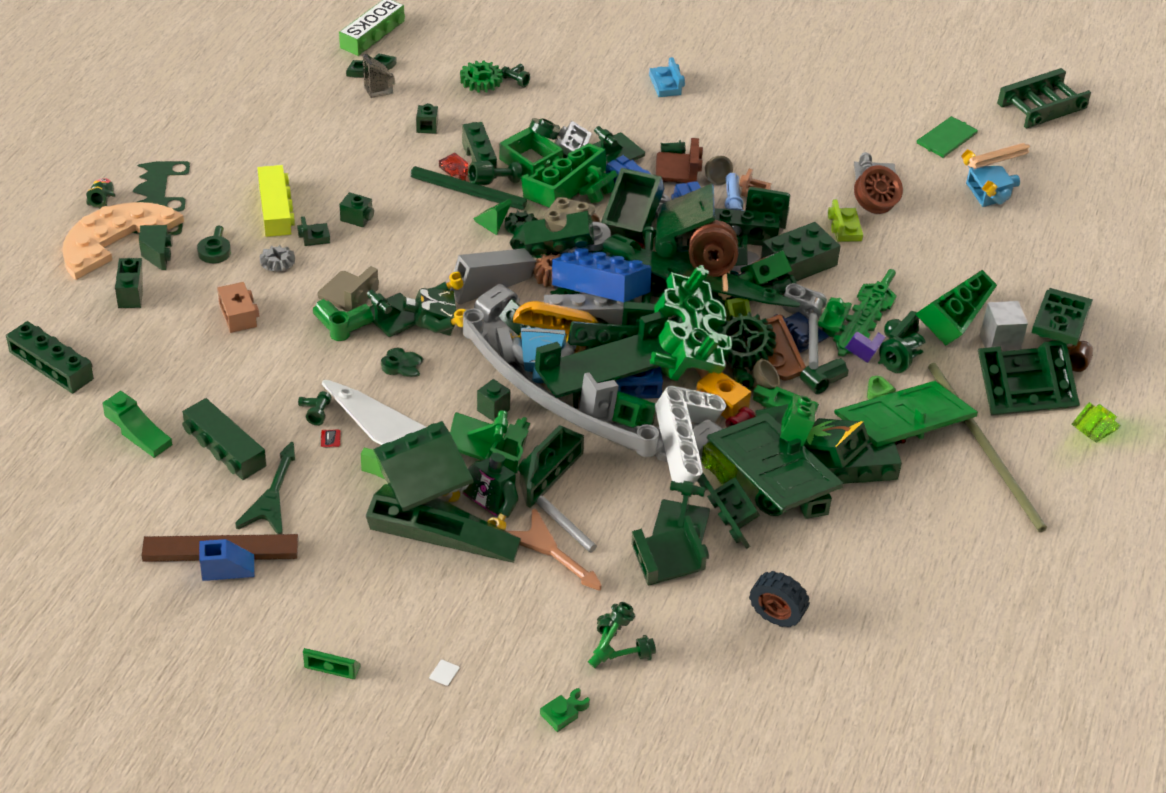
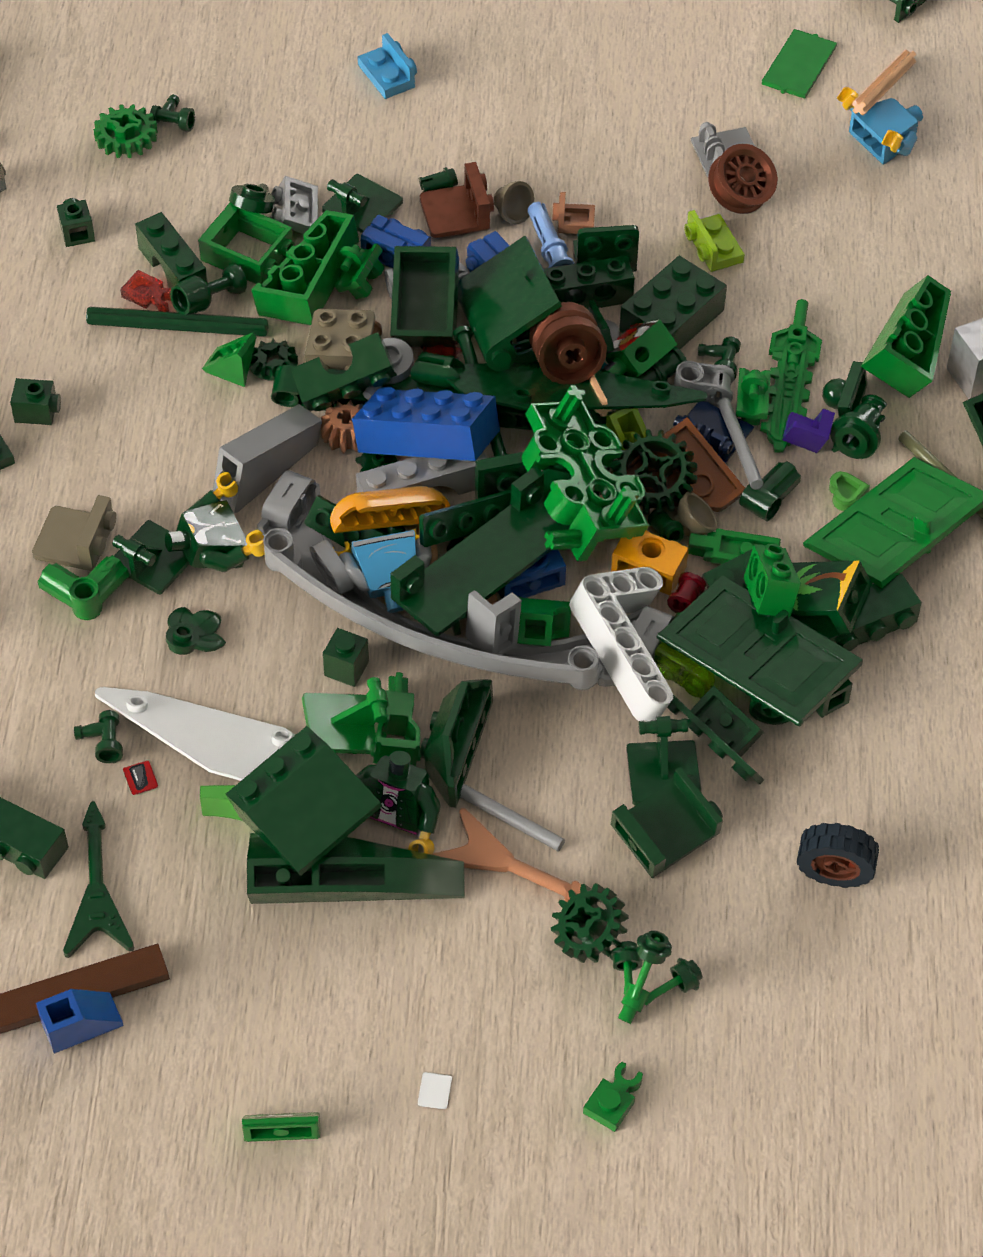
camera: 15 degrees left, 10 degrees up
(590, 596) = (589, 923): none -> dark green gear
(825, 288) = (726, 351): none -> dark green piece

